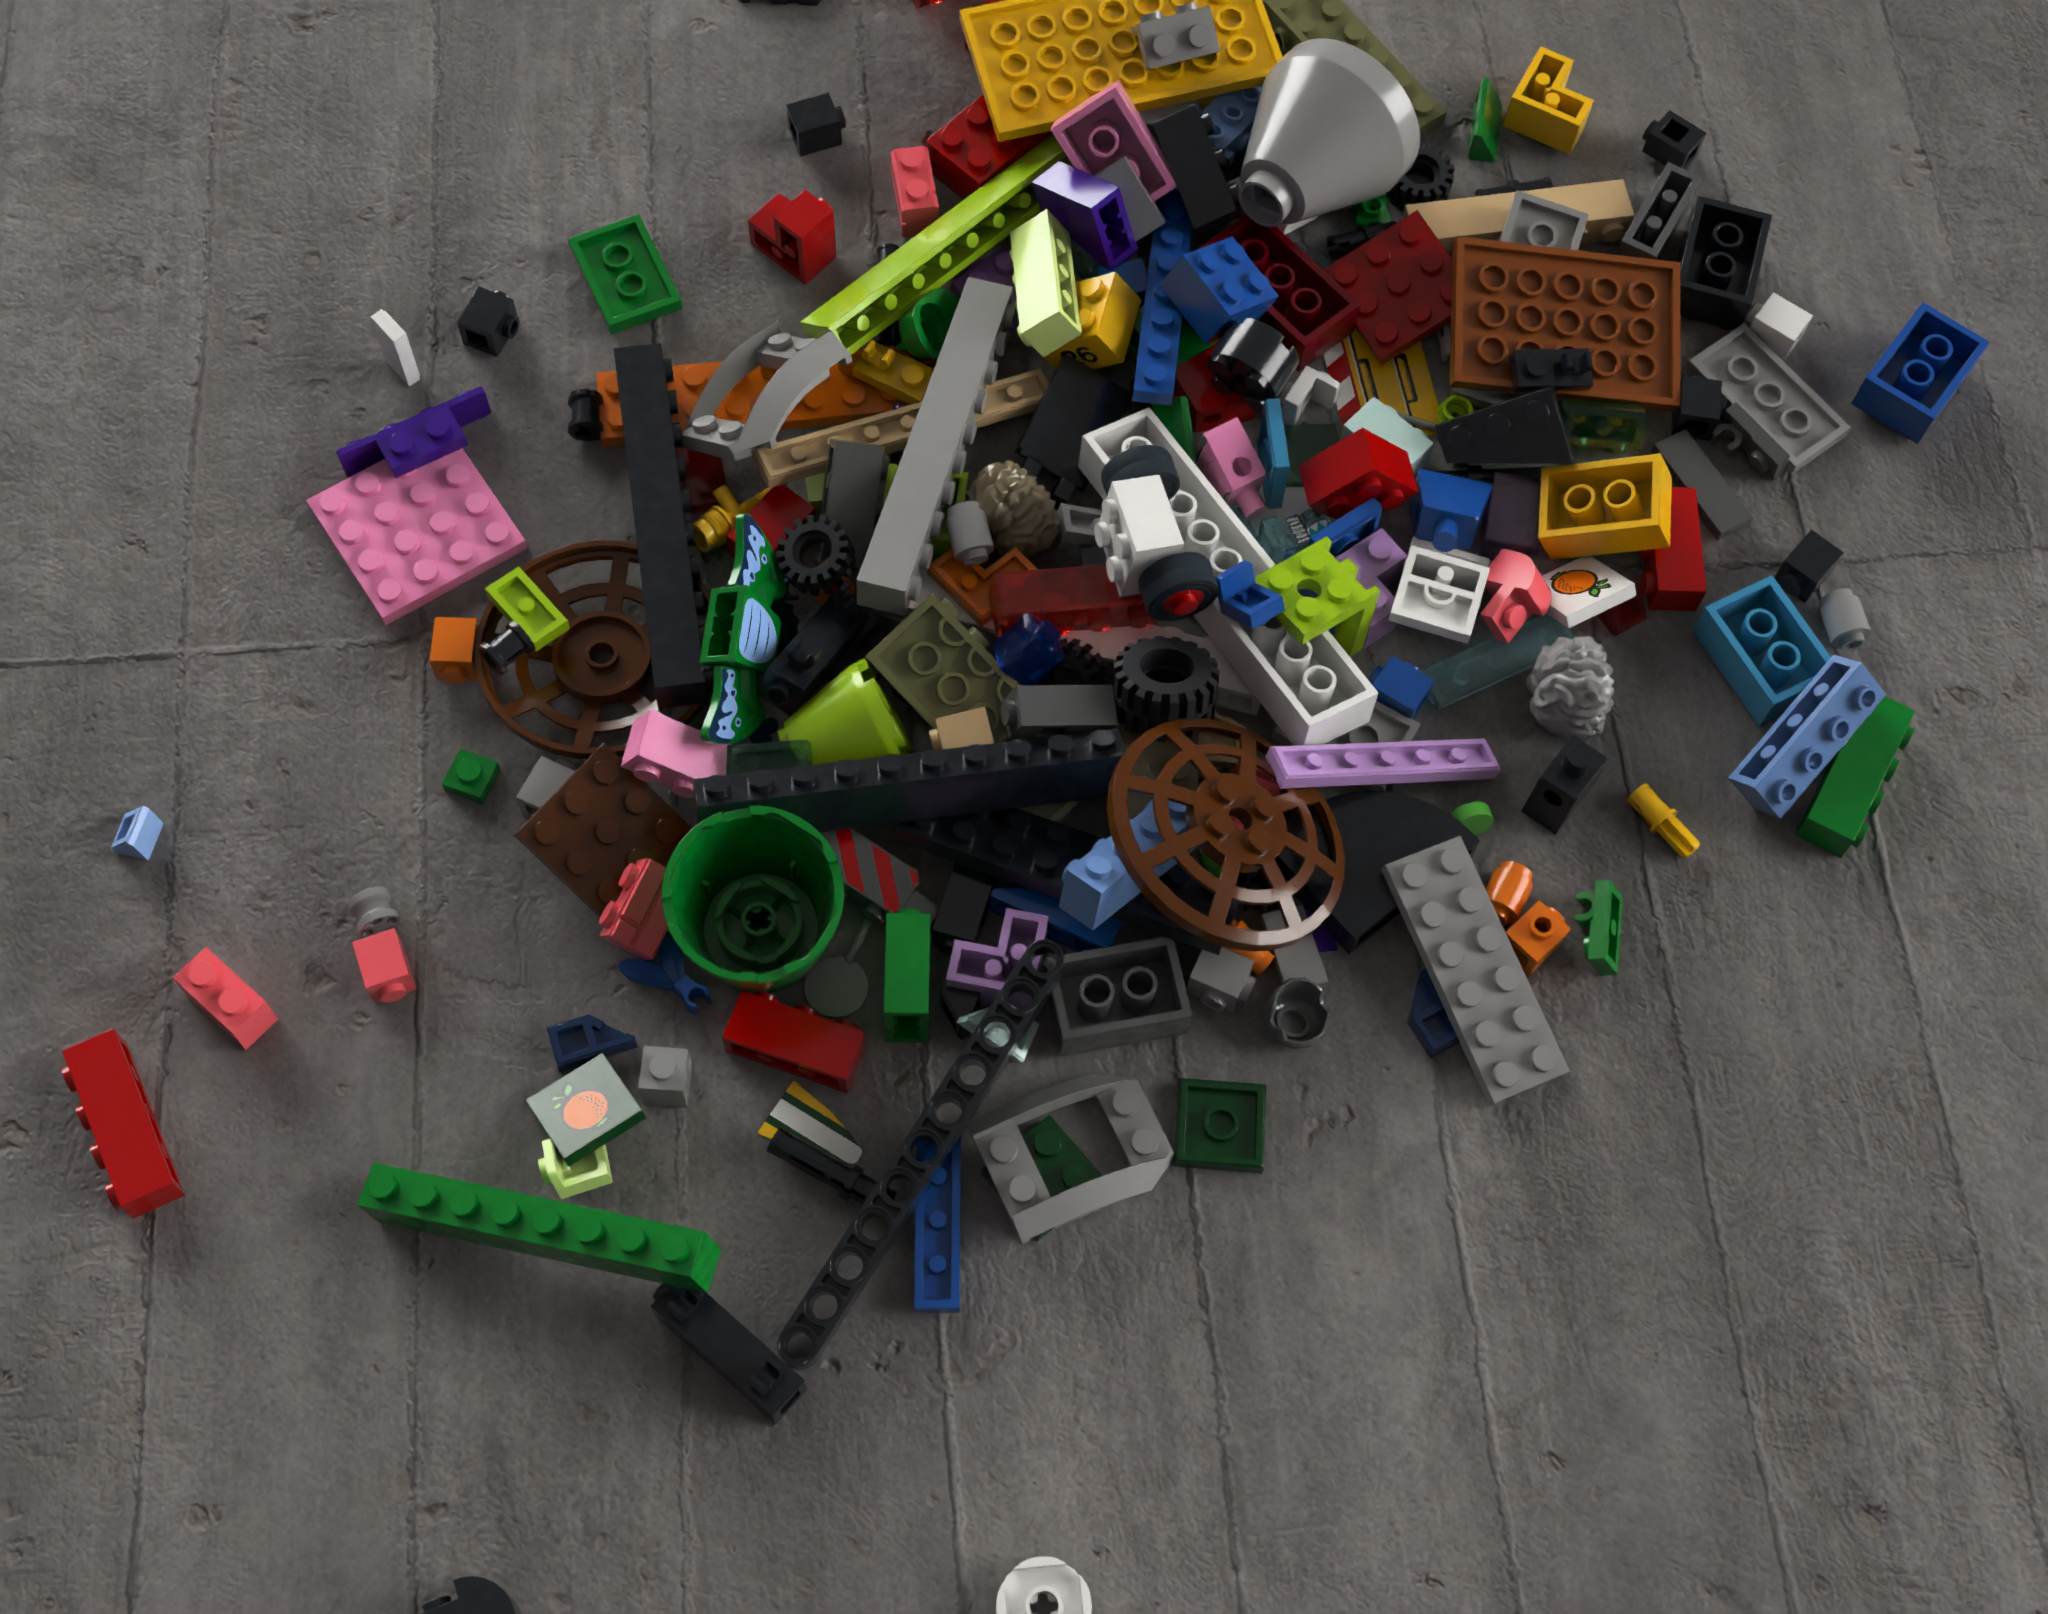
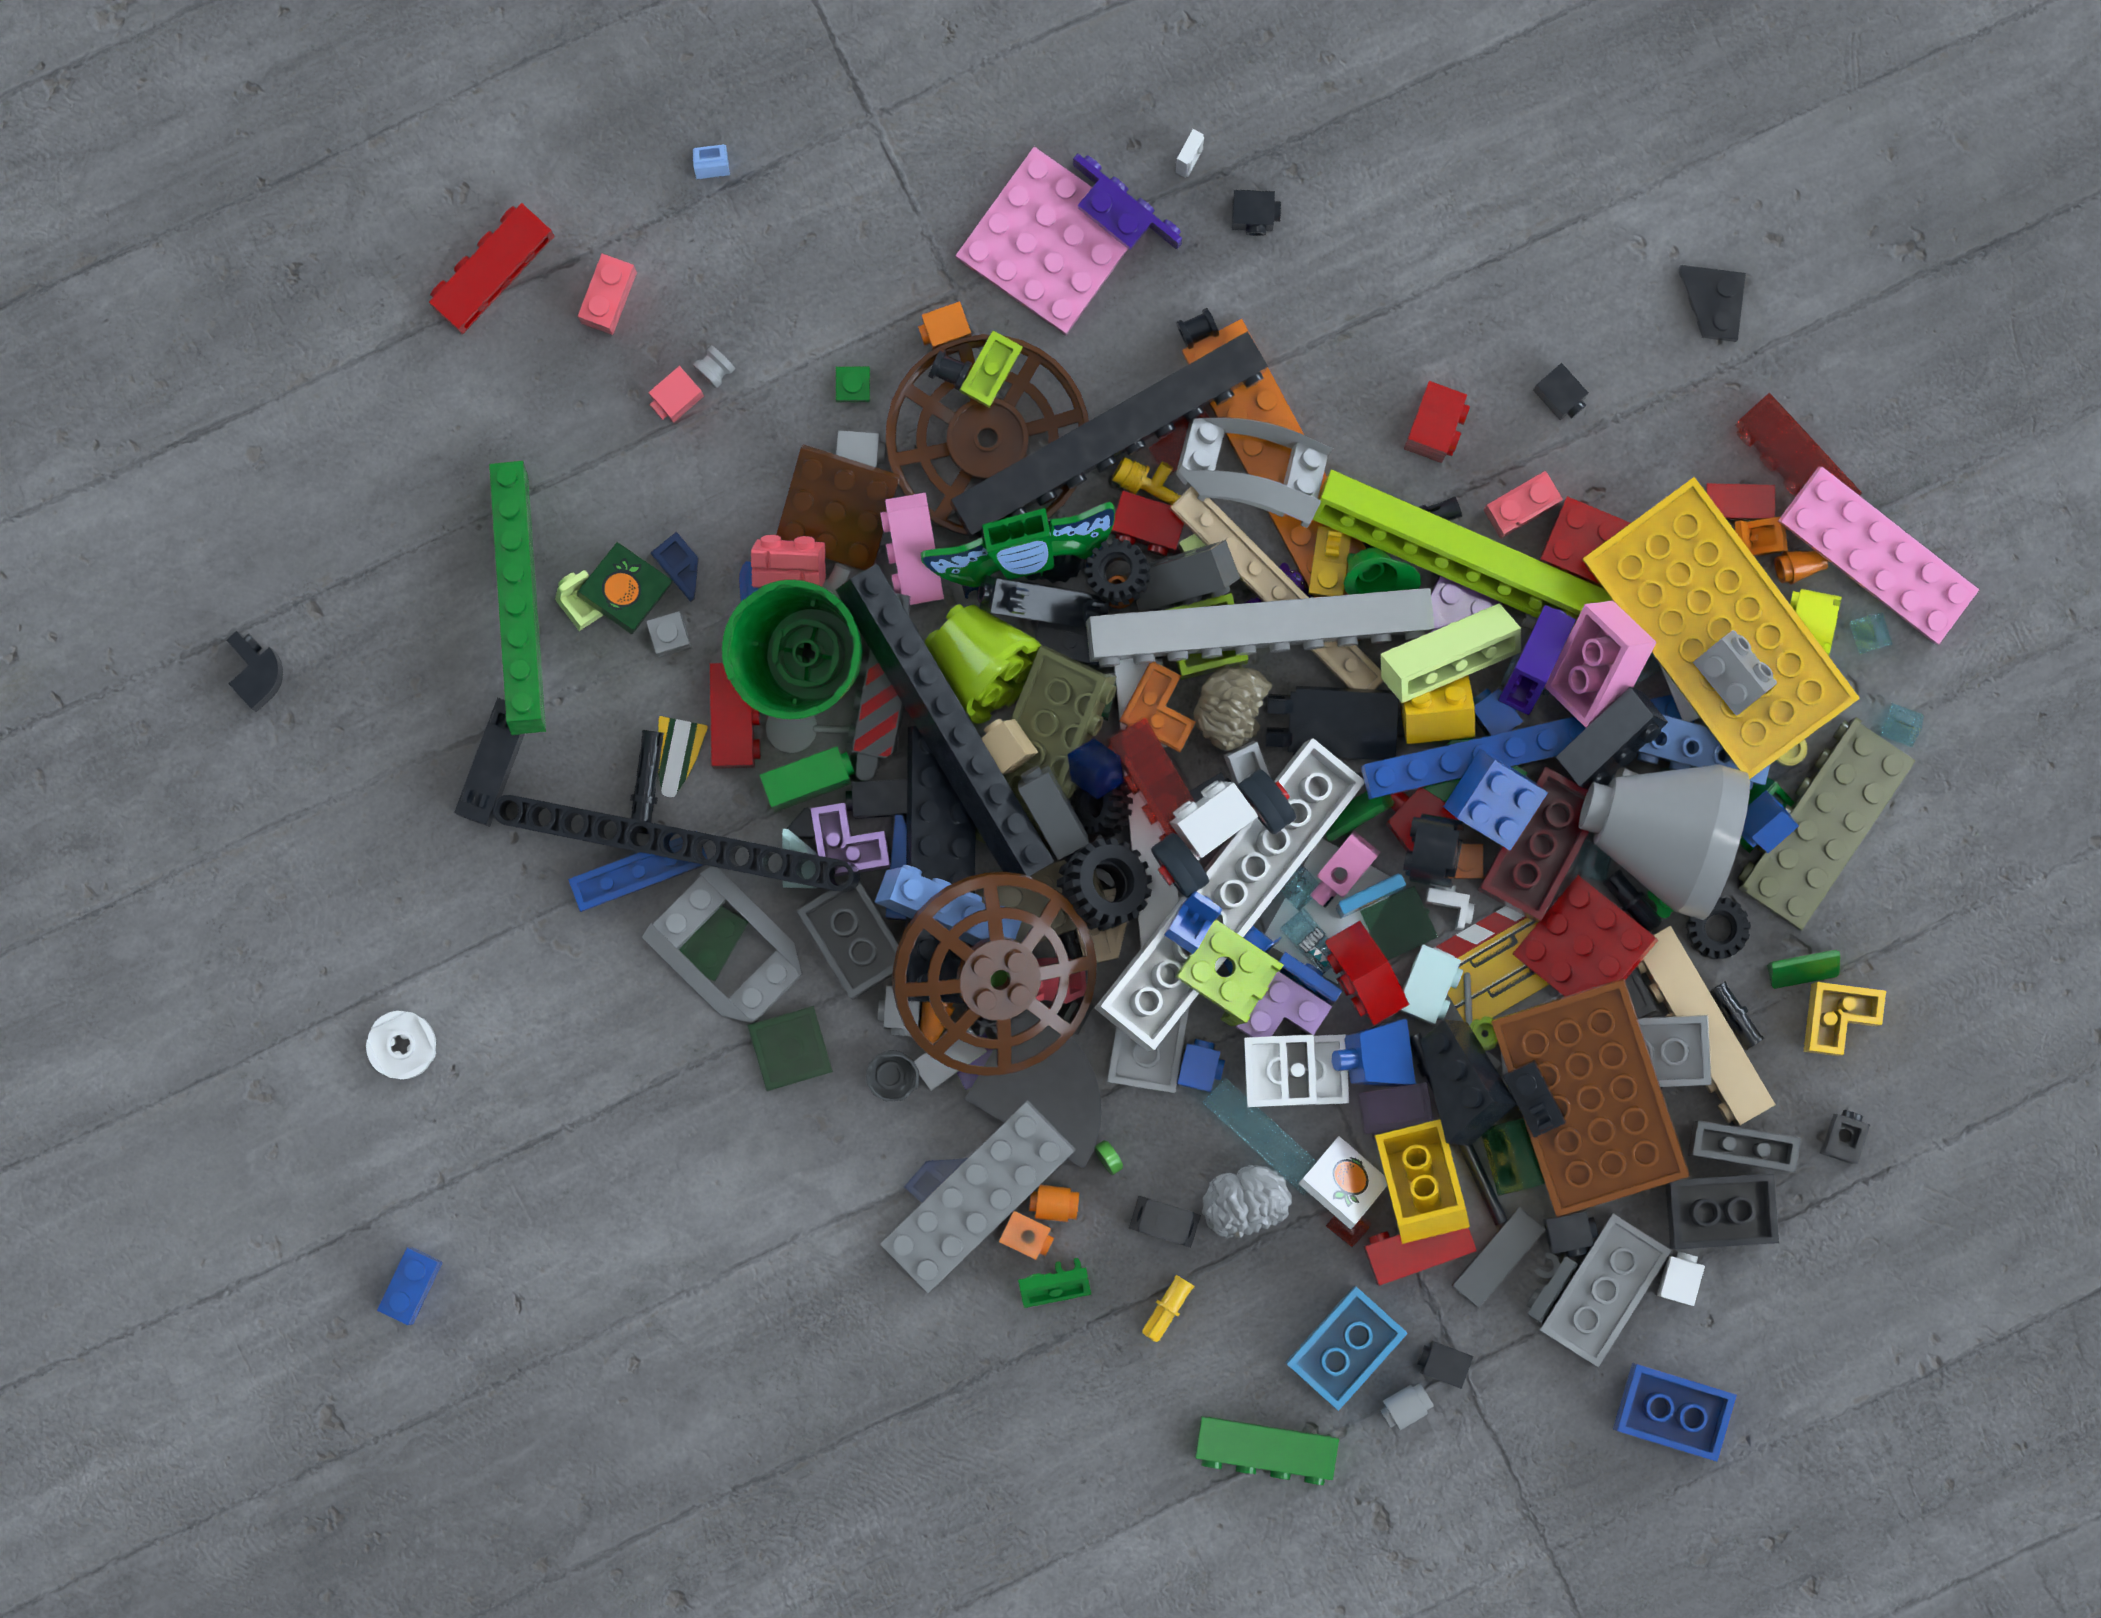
camera: 75 degrees right, 20 degrees up
(625, 274) = (1346, 299): green plate -> none
(767, 756) = (926, 608): clear green tile -> none
(969, 533) = (1182, 683): light grey brick -> none
(1140, 207) = (1561, 692): light grey tile -> none
(1382, 763) = (1117, 1074): lavender tile -> none
(1515, 592) = (1319, 1137): coral brick -> none
(1807, 736) = (1271, 1398): medium blue brick -> none

